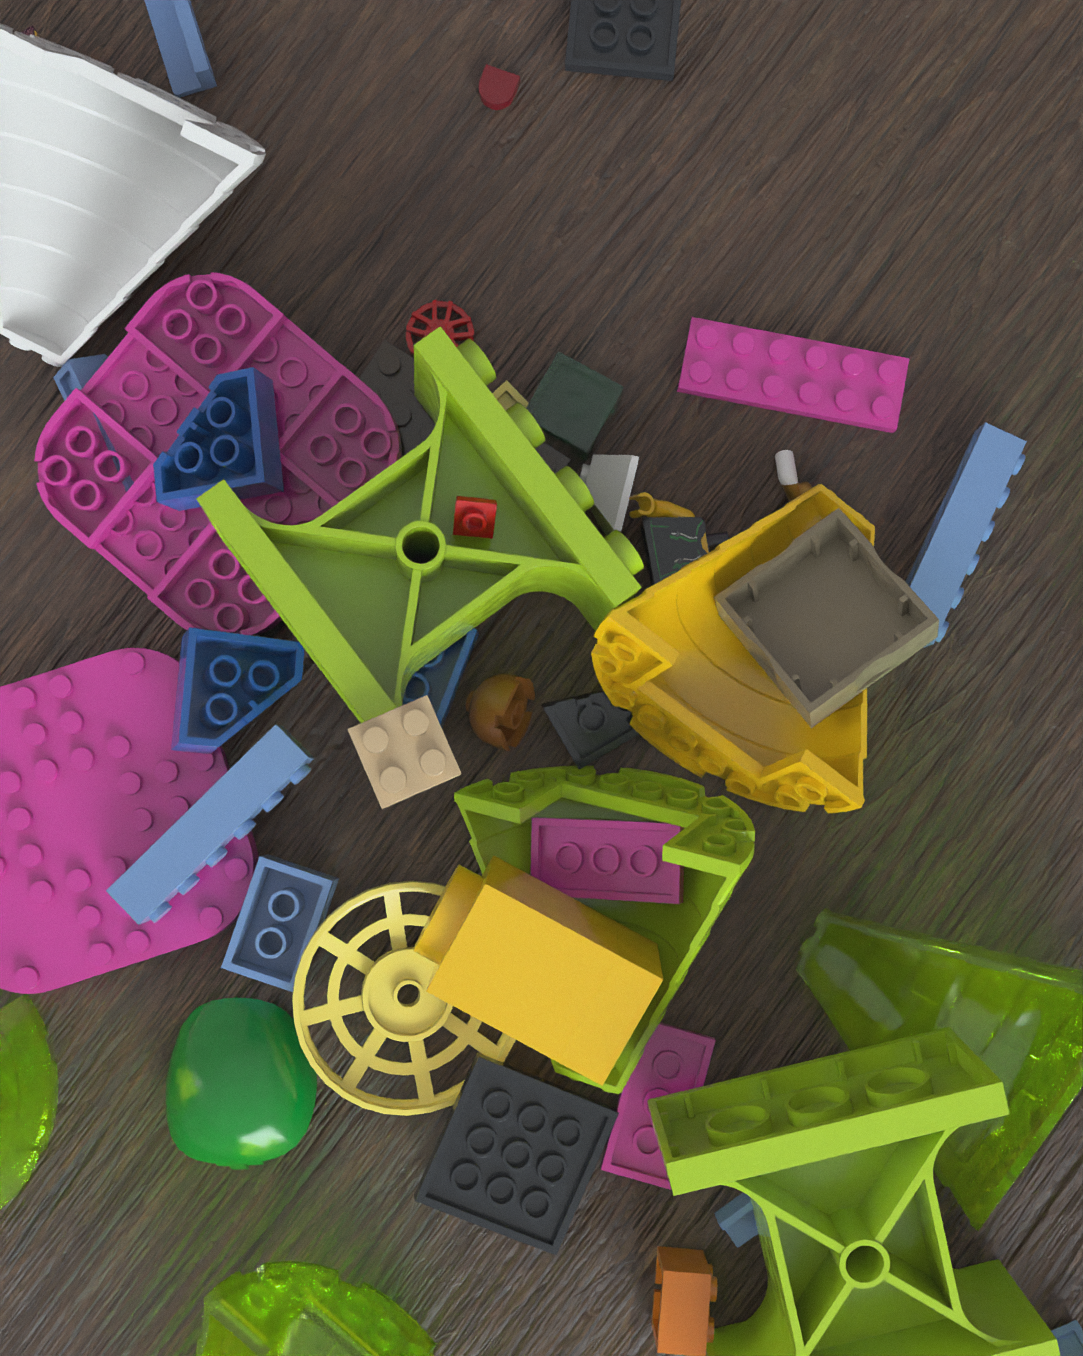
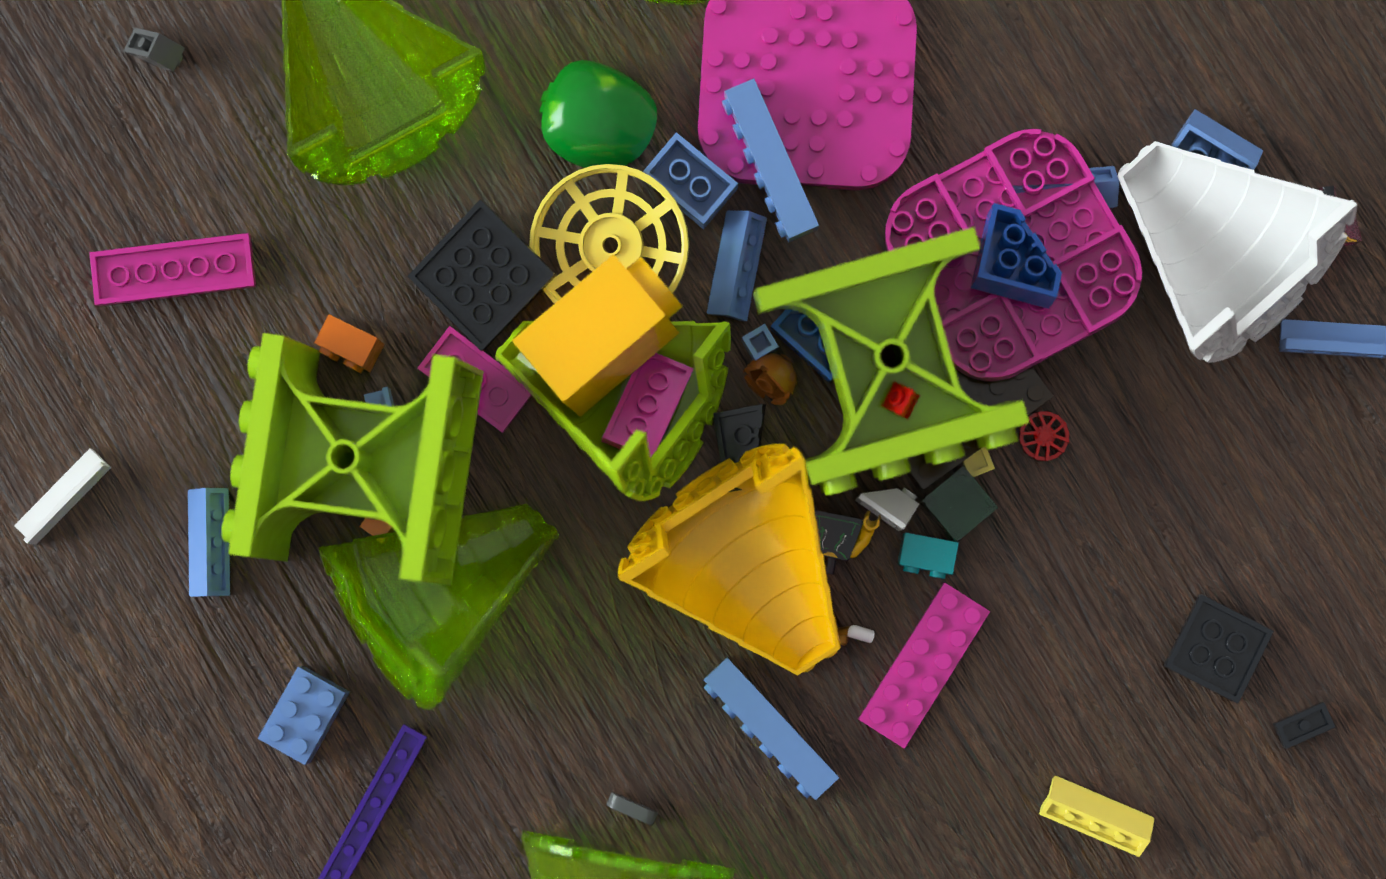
camera: 115 degrees right, 0 degrees up
(228, 683) = (857, 204): blue brick -> none
(356, 819) = (736, 264): none -> medium blue panel
(404, 752) = (765, 295): tan plate -> none
(465, 742) = (759, 342): none -> medium blue brick
(497, 87) = (1203, 542): dark red tile -> none
(652, 421) = (927, 554): none -> teal brick
(826, 617) = (748, 609): dark tan tile -> none
(892, 89) = (1098, 816): none -> light yellow panel

